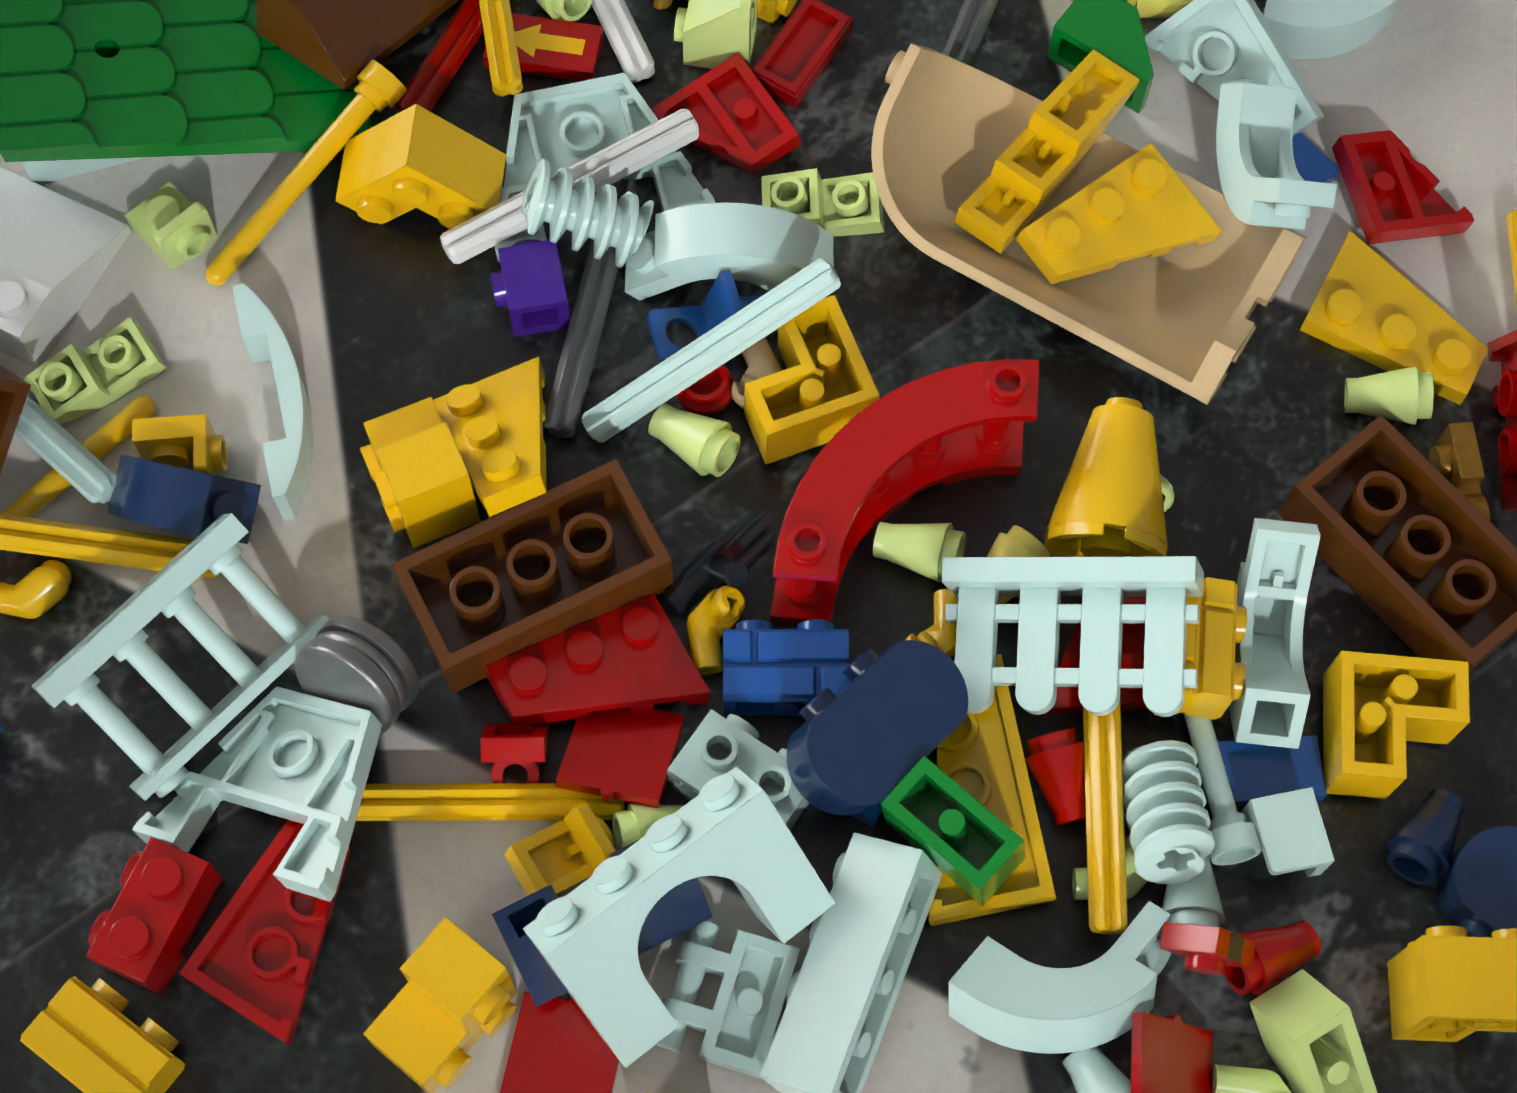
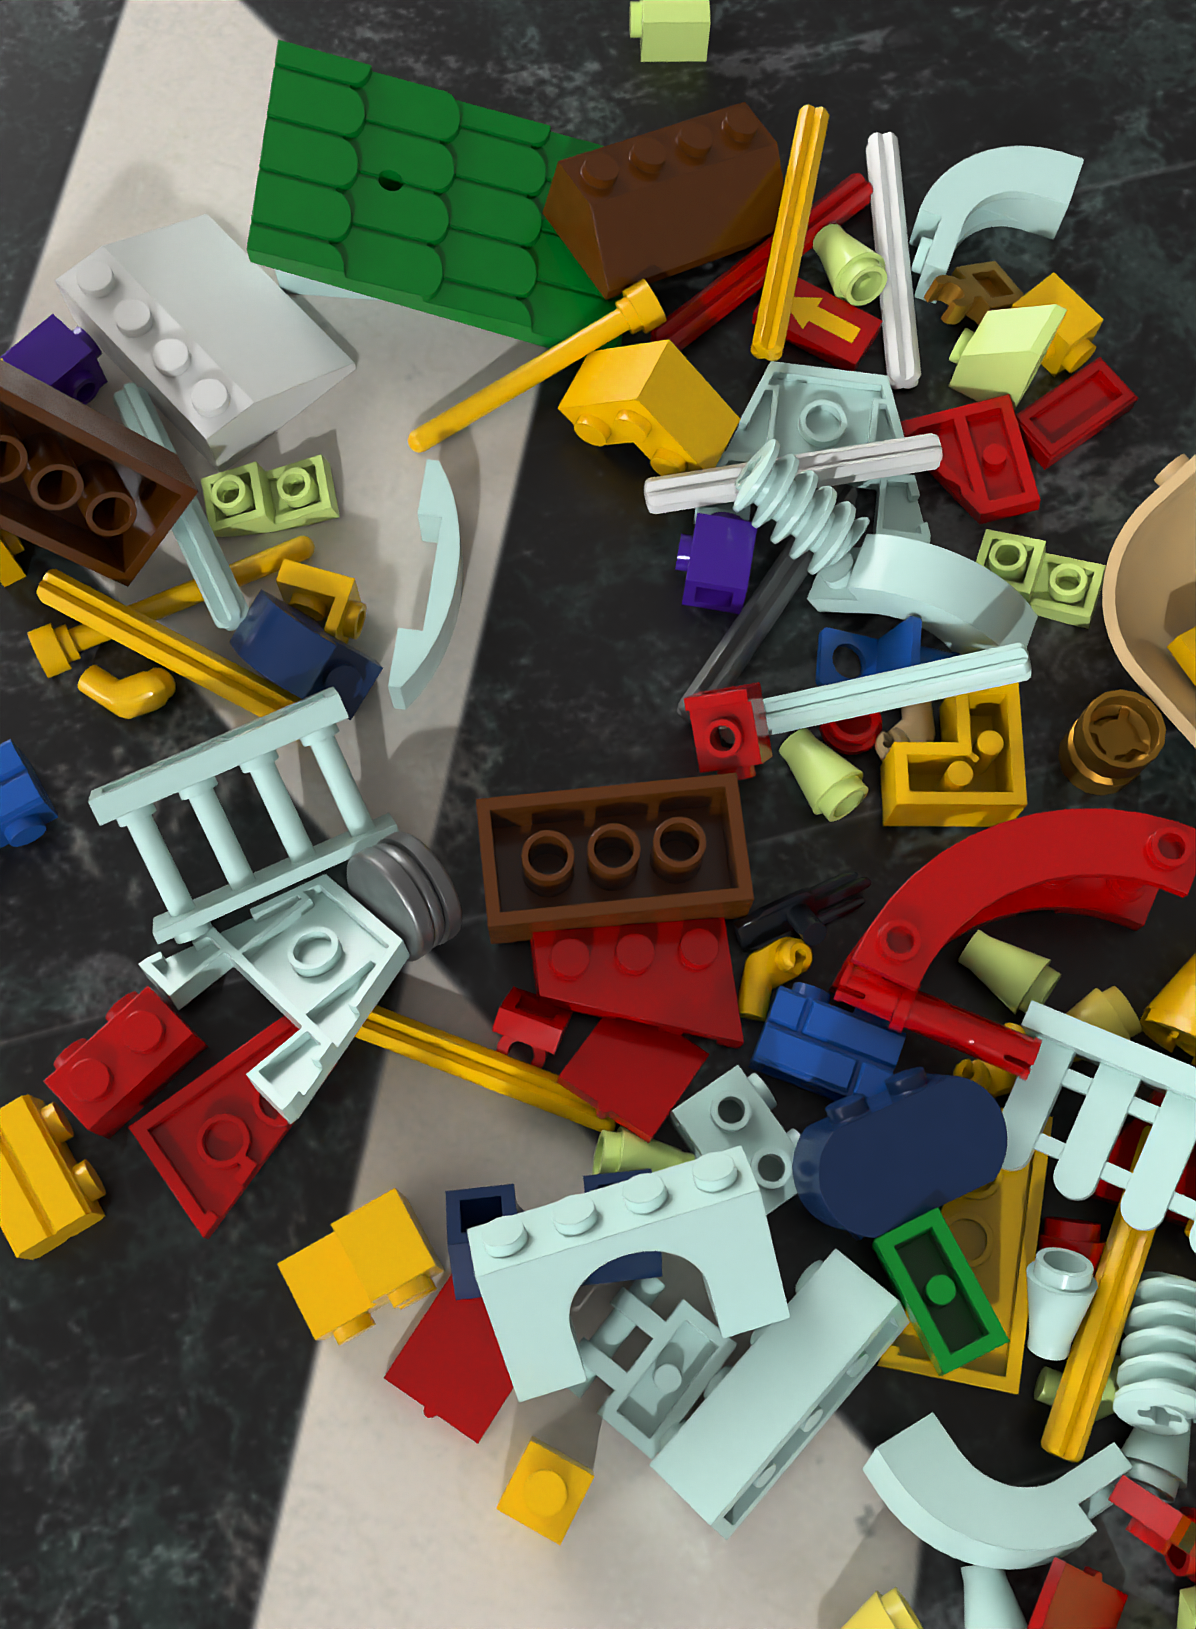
camera: 20 degrees right, 5 degrees up
(172, 225) = (395, 377): yellowish green bracket -> none
(419, 473) = (538, 711): yellow brick -> none
(501, 434) = (630, 703): yellow wing -> none
(562, 852) = (538, 1152): yellow bracket -> none
(604, 406) = (744, 713): none -> red brick
(868, 604) = (938, 1020): none -> red pin
(936, 320) = (1112, 742): none -> pearl gold wheel
(1058, 801) = (1058, 1297): none -> light aqua cone

